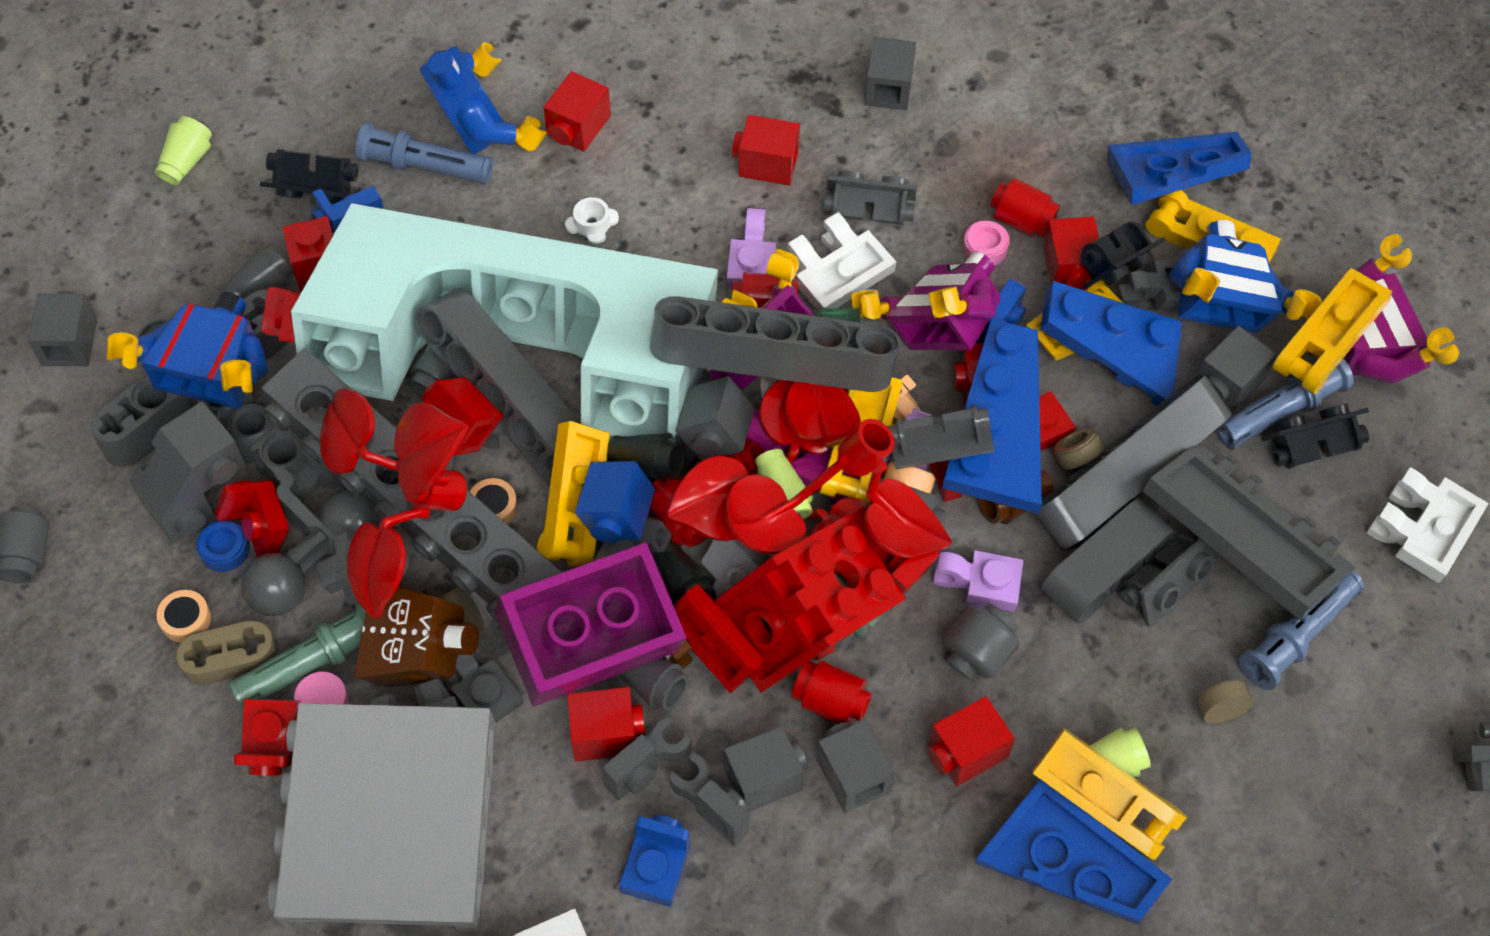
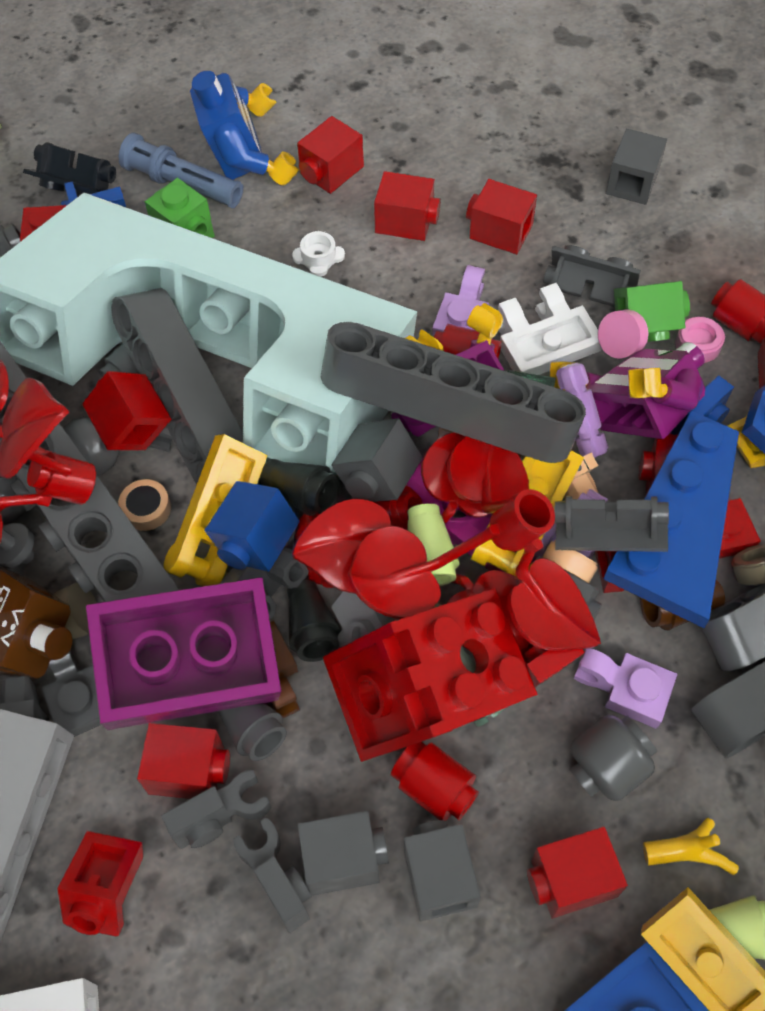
camera: 15 degrees right, 0 degrees up
(442, 198) = (182, 207): none -> bright green brick
(559, 840) = (98, 883): none -> red bracket
(656, 859) = (197, 933): blue bracket -> none
(669, 155) = (405, 206): none -> red brick
(716, 639) = (322, 693): red tile -> none
(877, 308) = (573, 380): none -> lavender axle
(913, 253) = (622, 333): none -> bright pink tile
(934, 223) = (660, 304): none -> bright green brick
(1061, 703) = (689, 847): none -> yellow bar

